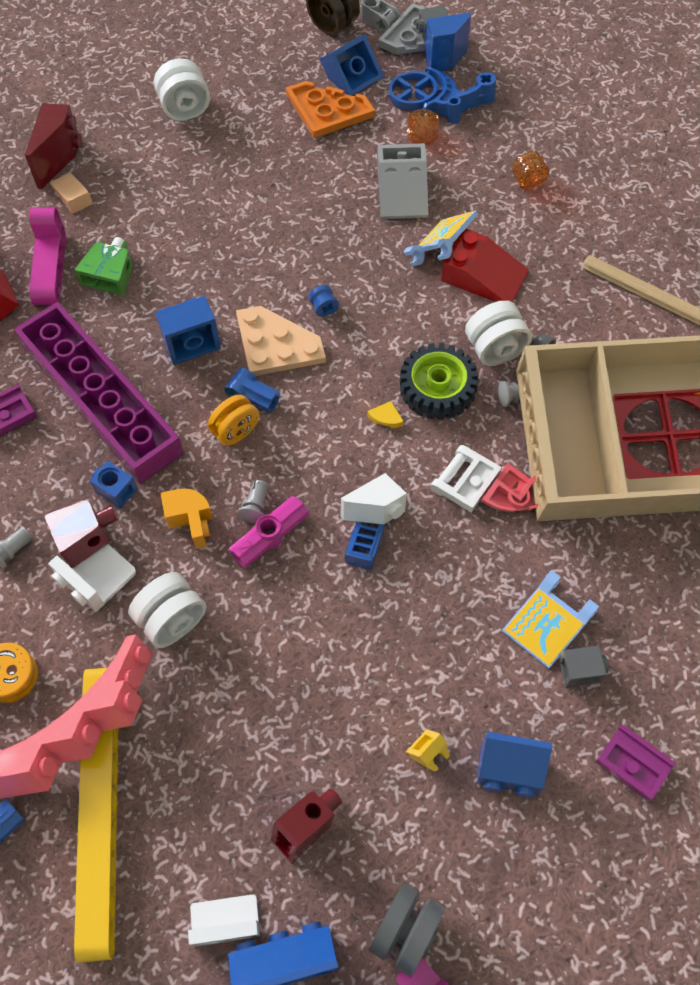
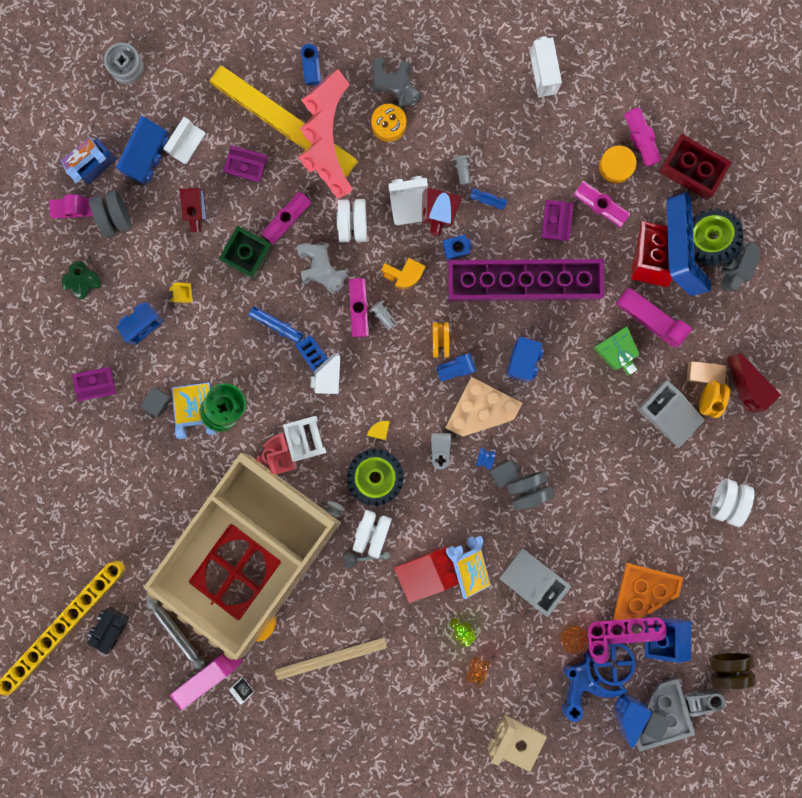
camera: 130 degrees right, 25 degrees up
(28, 498) = (488, 199): none -> blue axle
(91, 161) = (714, 399): none -> light orange head
(135, 192) = (671, 413): none -> light grey slope
(194, 809) = (245, 164): none -> magenta plate
(206, 696) = (294, 208): none -> dark pink piece
(255, 607) = (320, 267): none -> light grey animal
(310, 705) = (246, 253): none -> dark green brick
(319, 236) = (530, 490): none -> dark grey wheel
(322, 272) = (505, 473): none -> dark grey brick
(353, 342) = (441, 447): none -> light grey piece
(365, 594) = (282, 328): none -> blue pin
(378, 86) = (626, 636): none -> dark pink beam
(508, 206) = (462, 632): none -> clear neon green piece
(517, 576) = (228, 399): none -> green wheel
(532, 898) = (80, 283): none -> dark green plate
(563, 106) = (507, 735): none -> tan bracket

